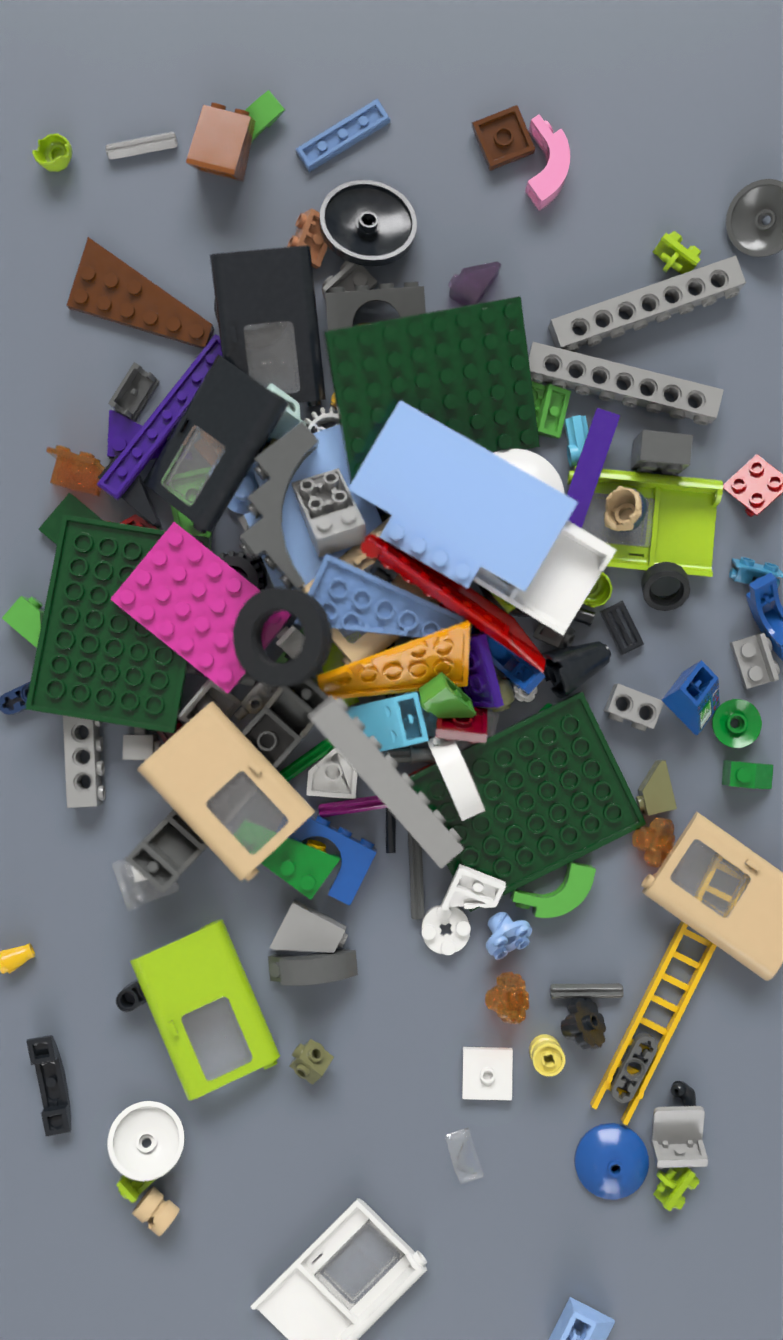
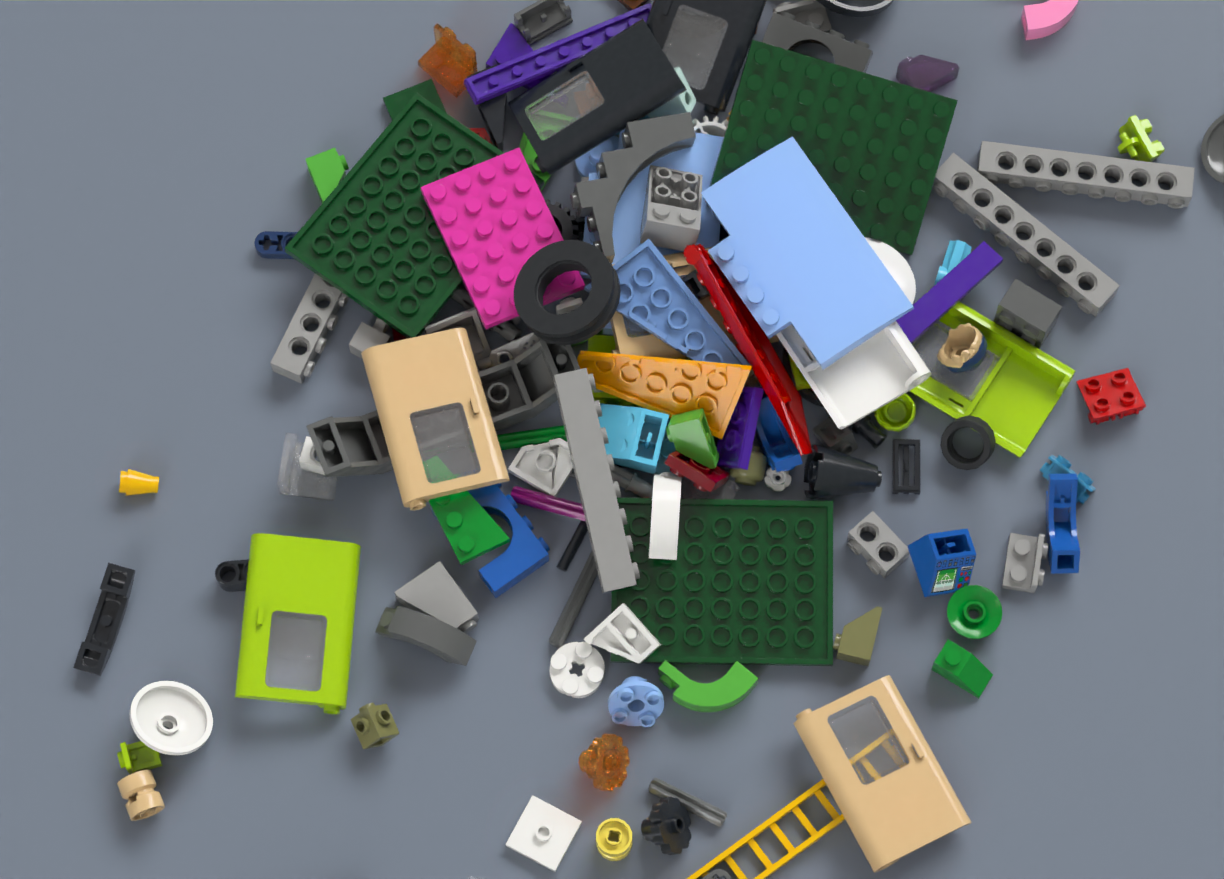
camera: 25 degrees right, 15 degrees down
(550, 408) = (940, 224): bright green slope -> none
(655, 841) = (833, 680): clear orange plant -> none

